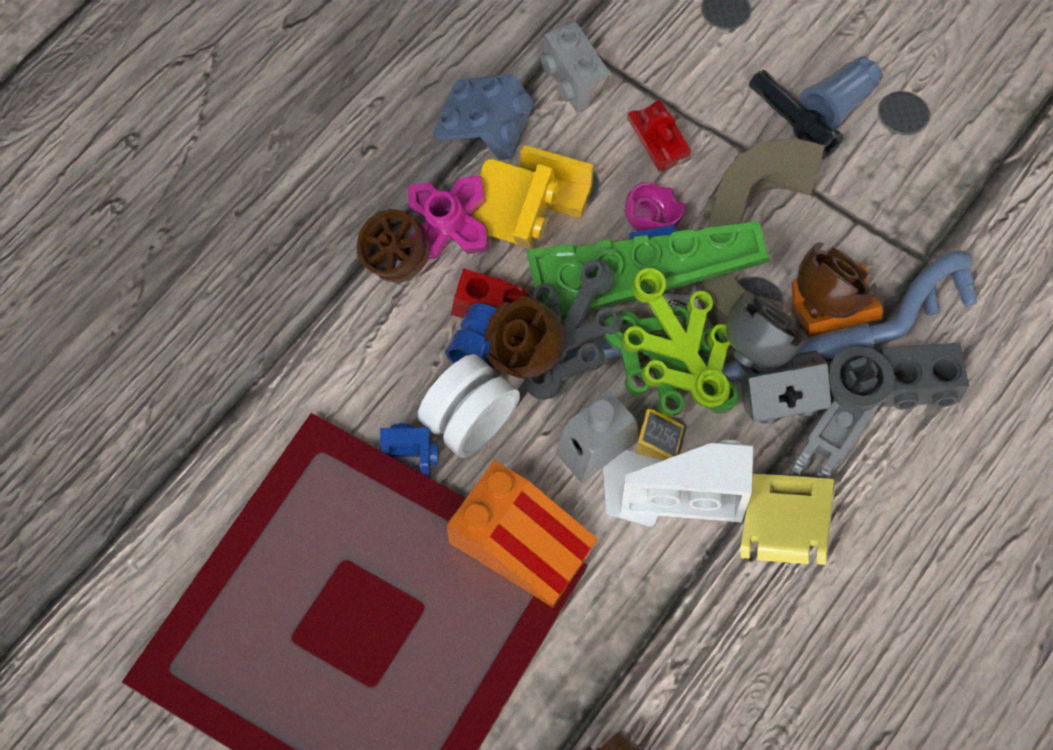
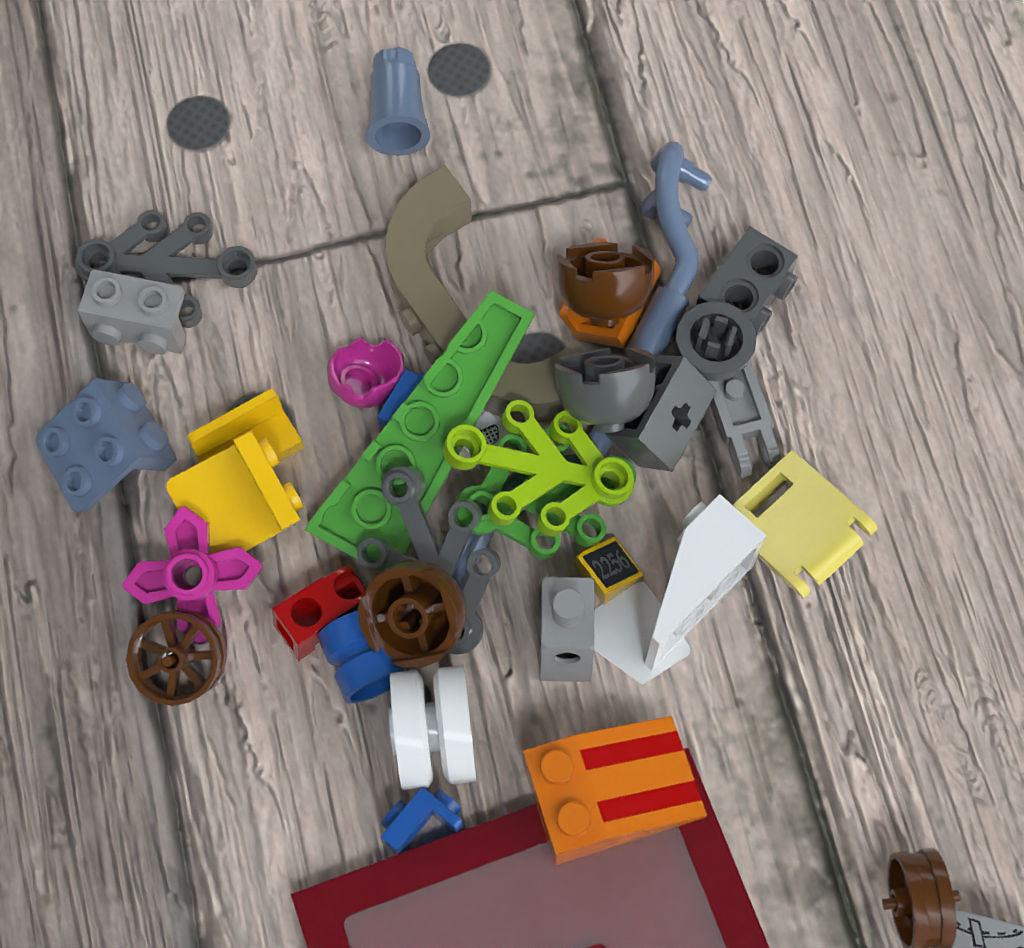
camera: 50 degrees left, 5 degrees up
(620, 57) = (160, 262): none -> dark grey plant
(659, 135) = (288, 299): red hips -> none
(805, 123) = (398, 160): black pin -> none

